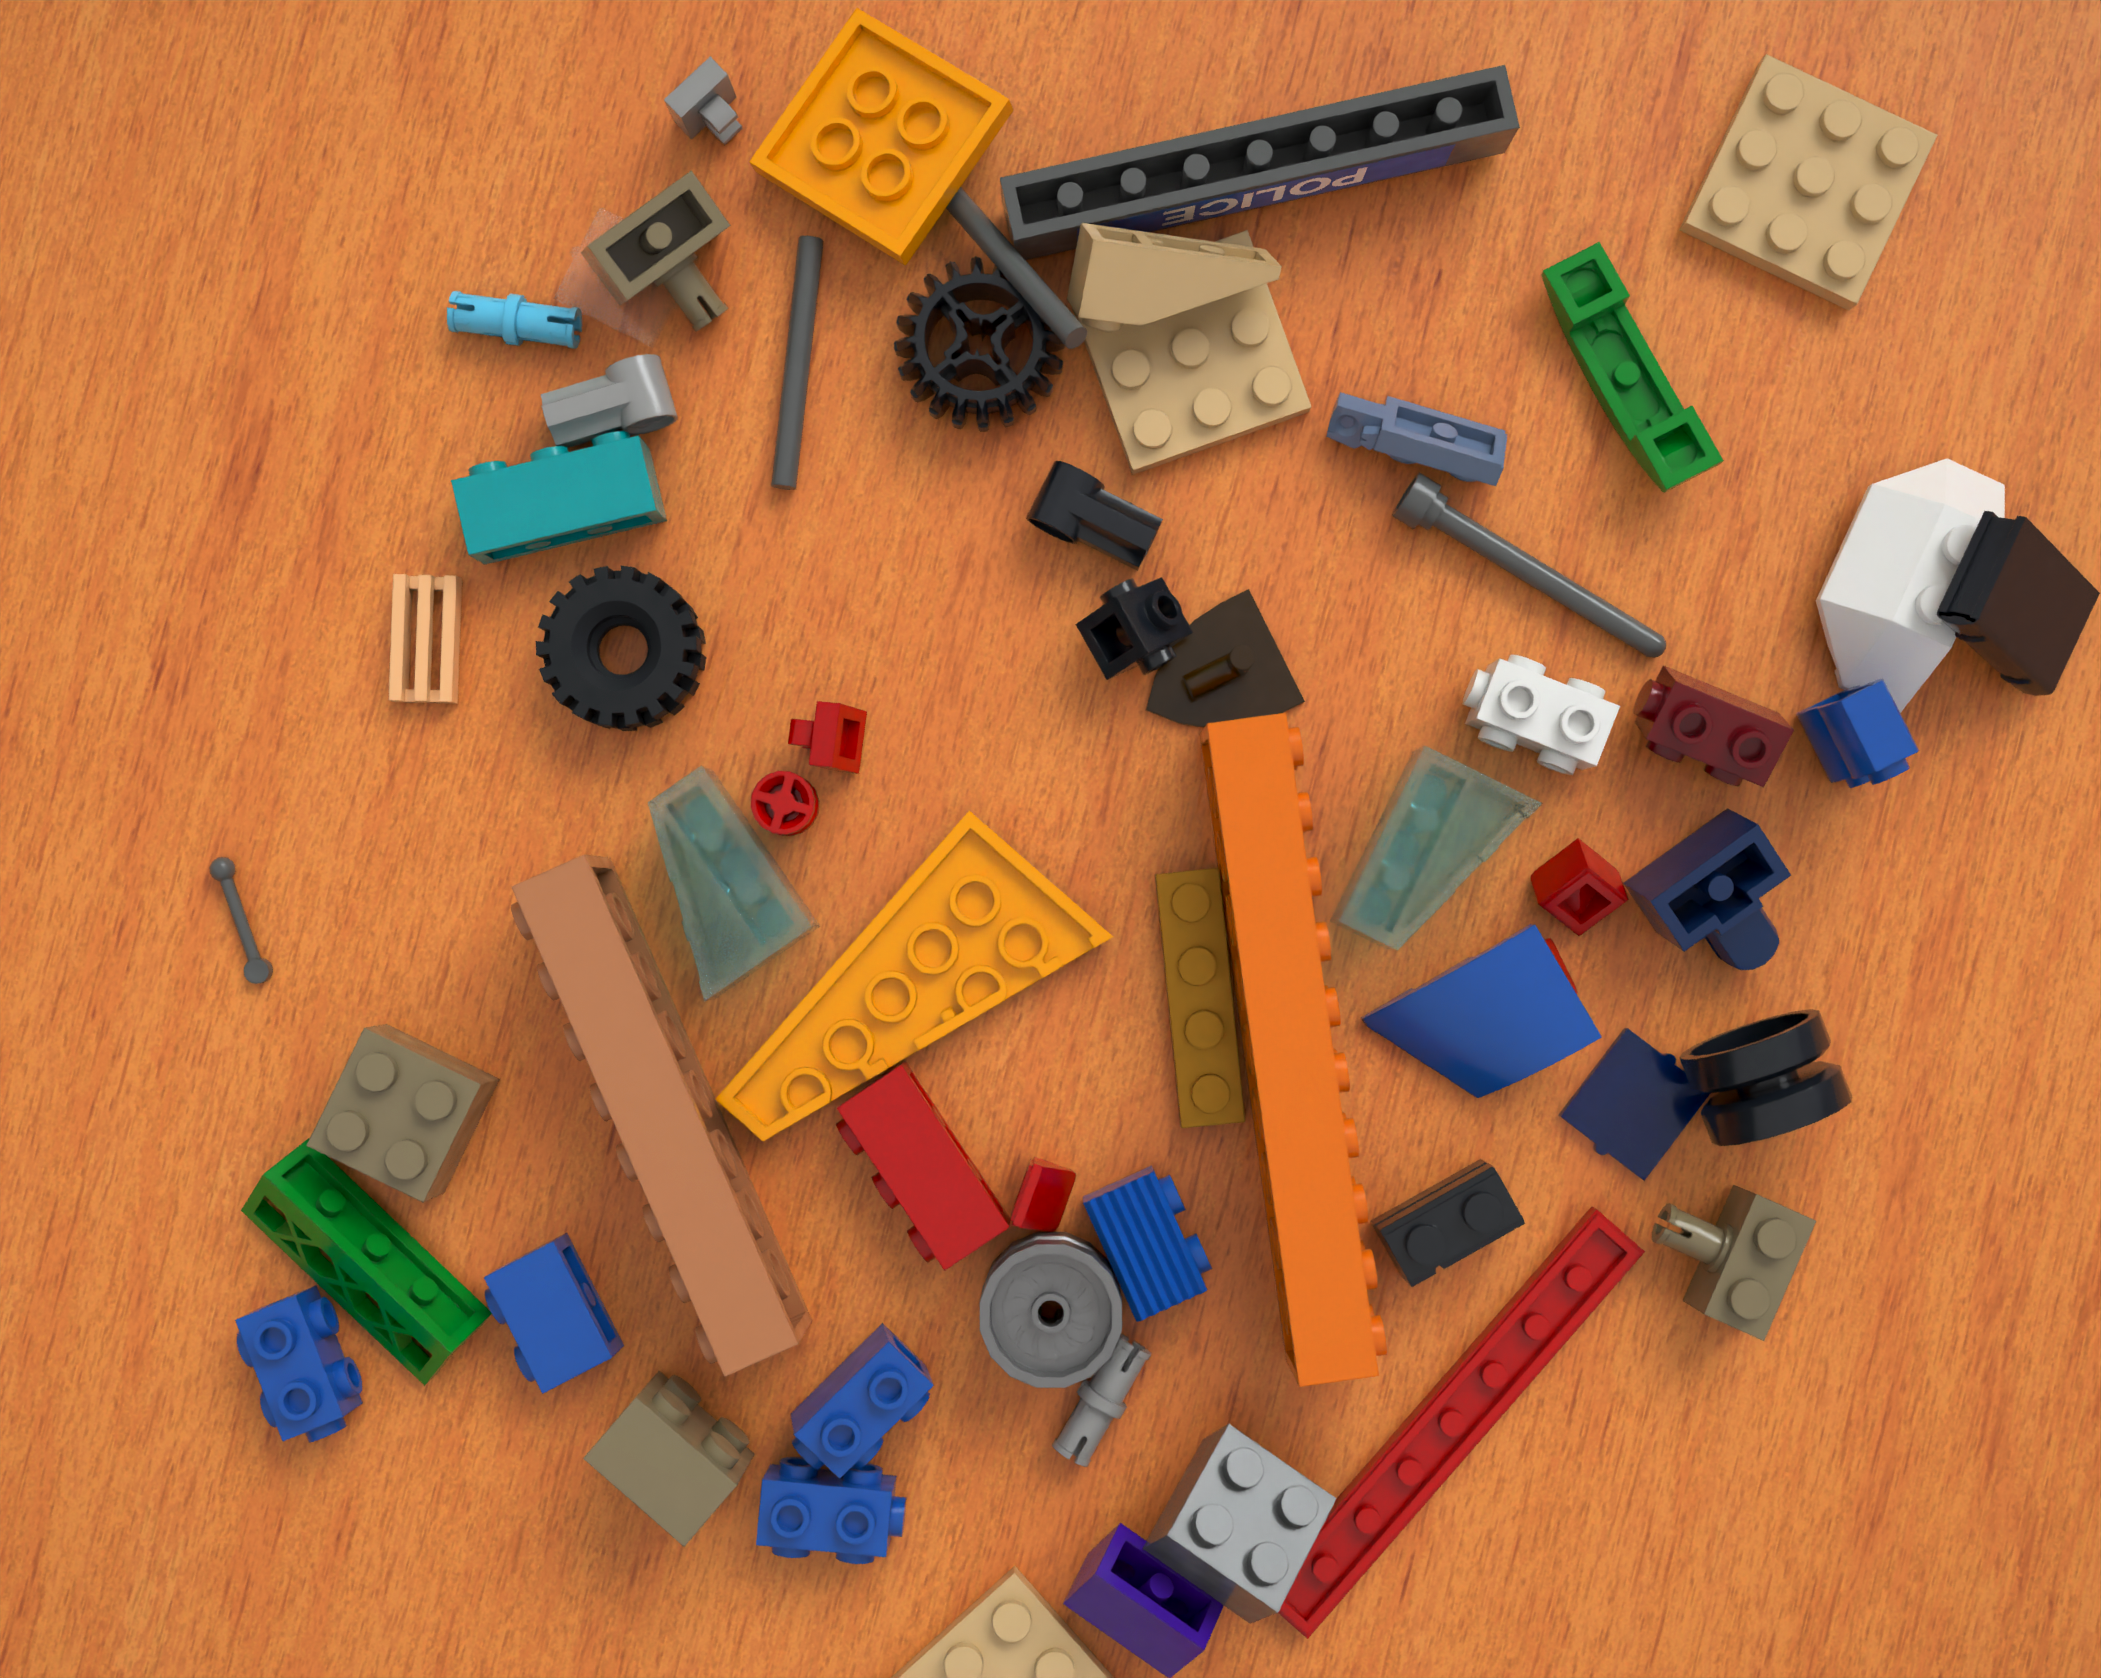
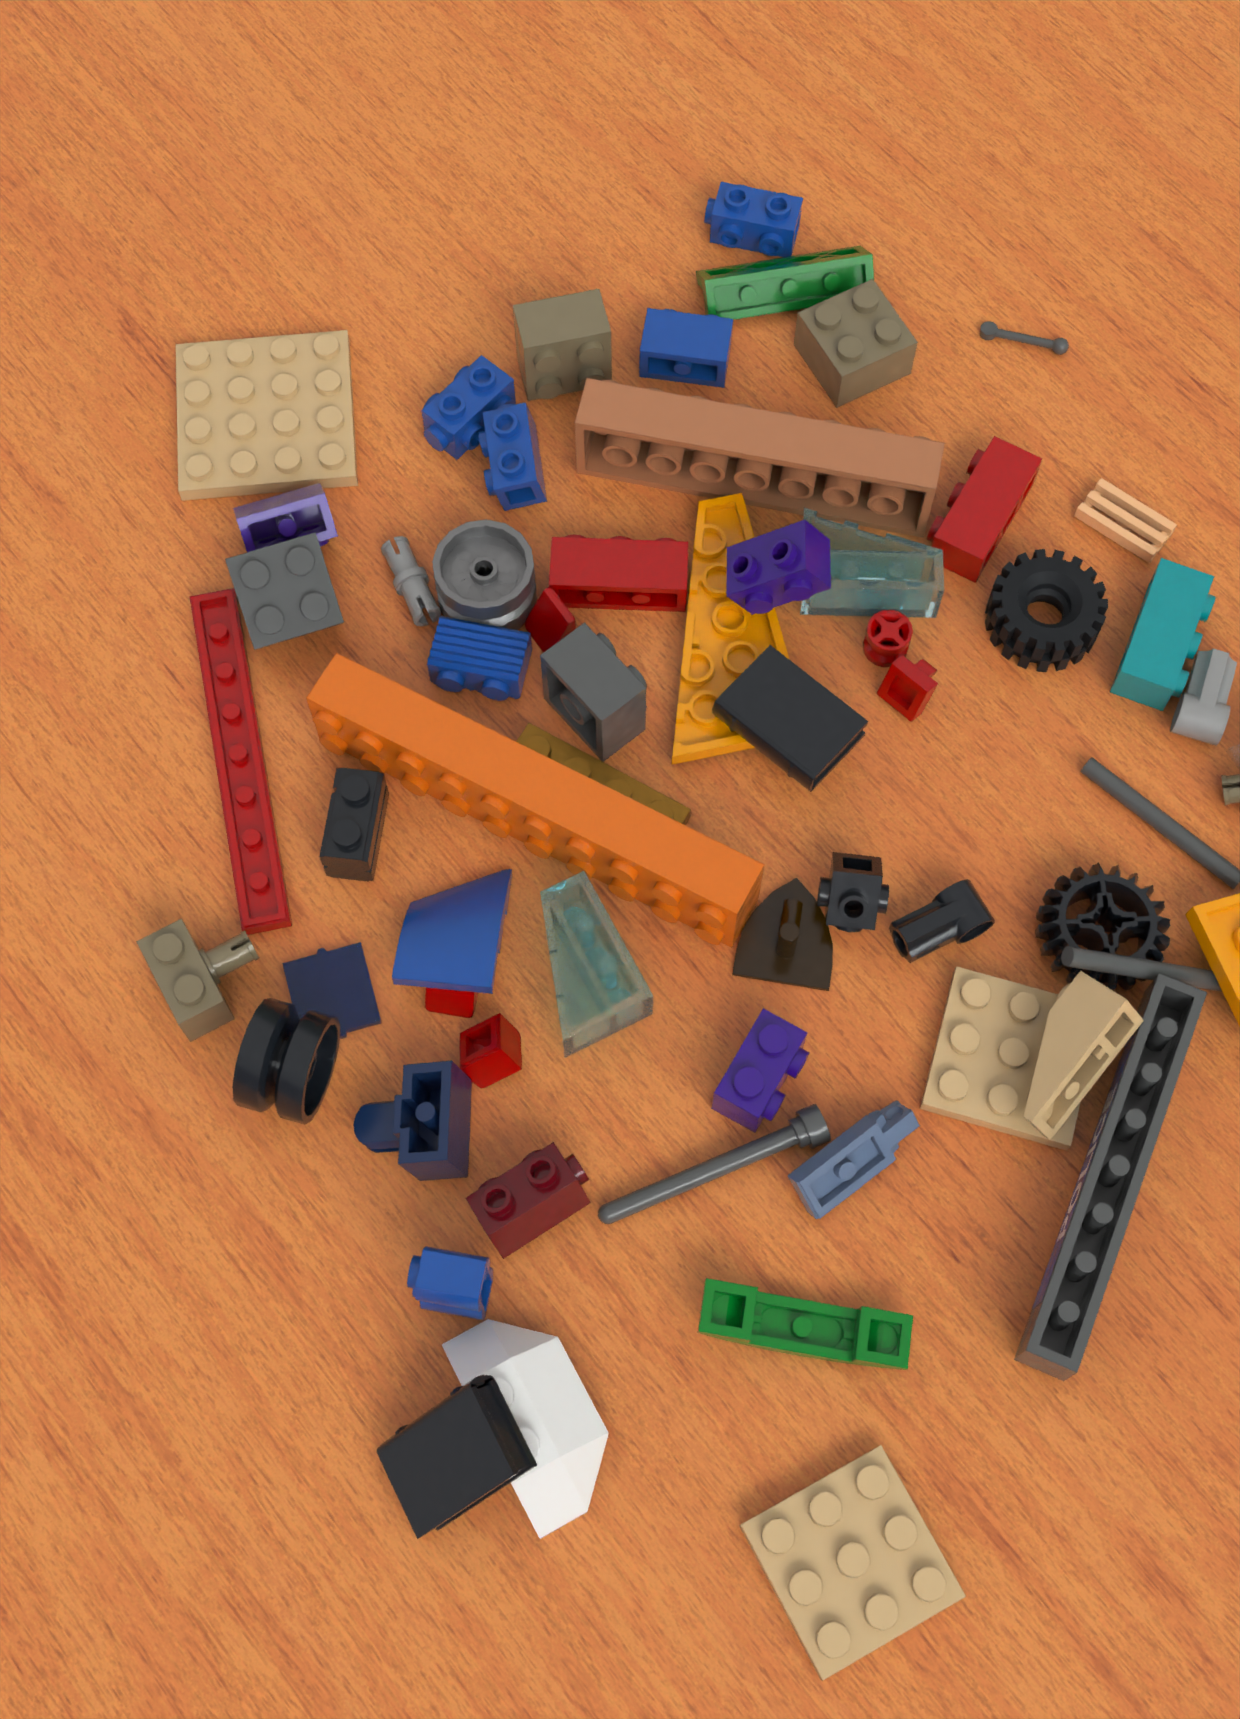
camera: 120 degrees right, 20 degrees down
(531, 807) = (983, 507): none -> red brick
(813, 969) = (778, 567): none -> dark purple brick
(982, 834) = (790, 718): none -> black piece
(1107, 1076) = (594, 691): none -> dark grey brick
(1404, 590) = (759, 1070): none -> dark purple brick
(1523, 707) = (629, 1093): white brick -> none

